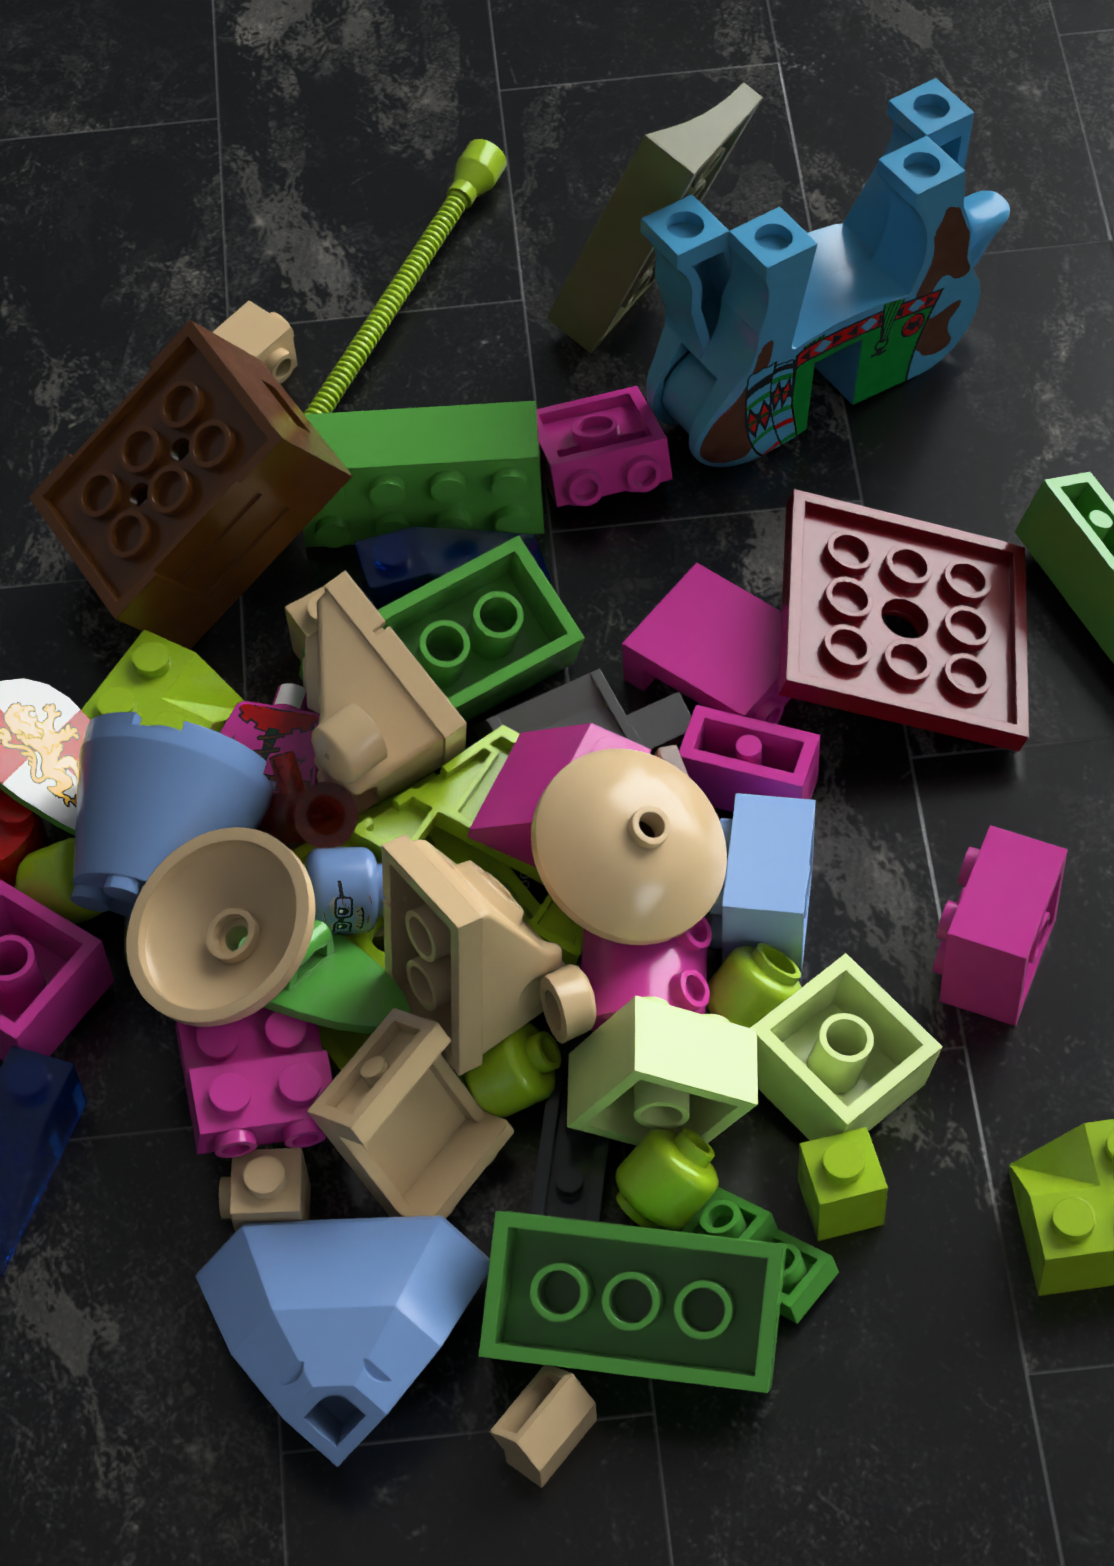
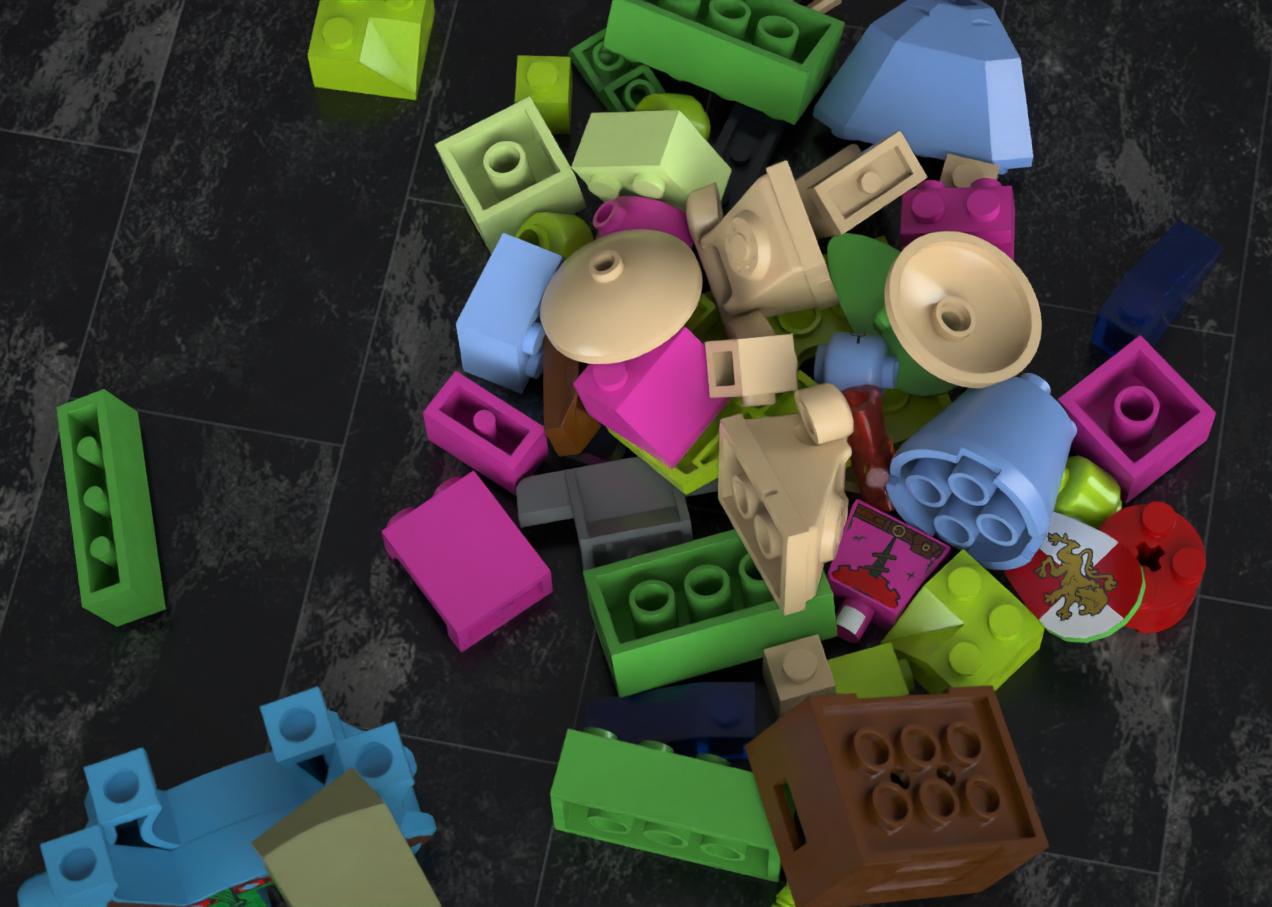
camera: 165 degrees left, 10 degrees up
(256, 651) = (872, 673): none -> lime brick
(454, 812) = (752, 368): none -> tan brick
(601, 447) = (494, 817): dark pink plate -> none
(955, 589) = (271, 478): piece -> none
(999, 924) = (347, 232): dark pink brick -> none

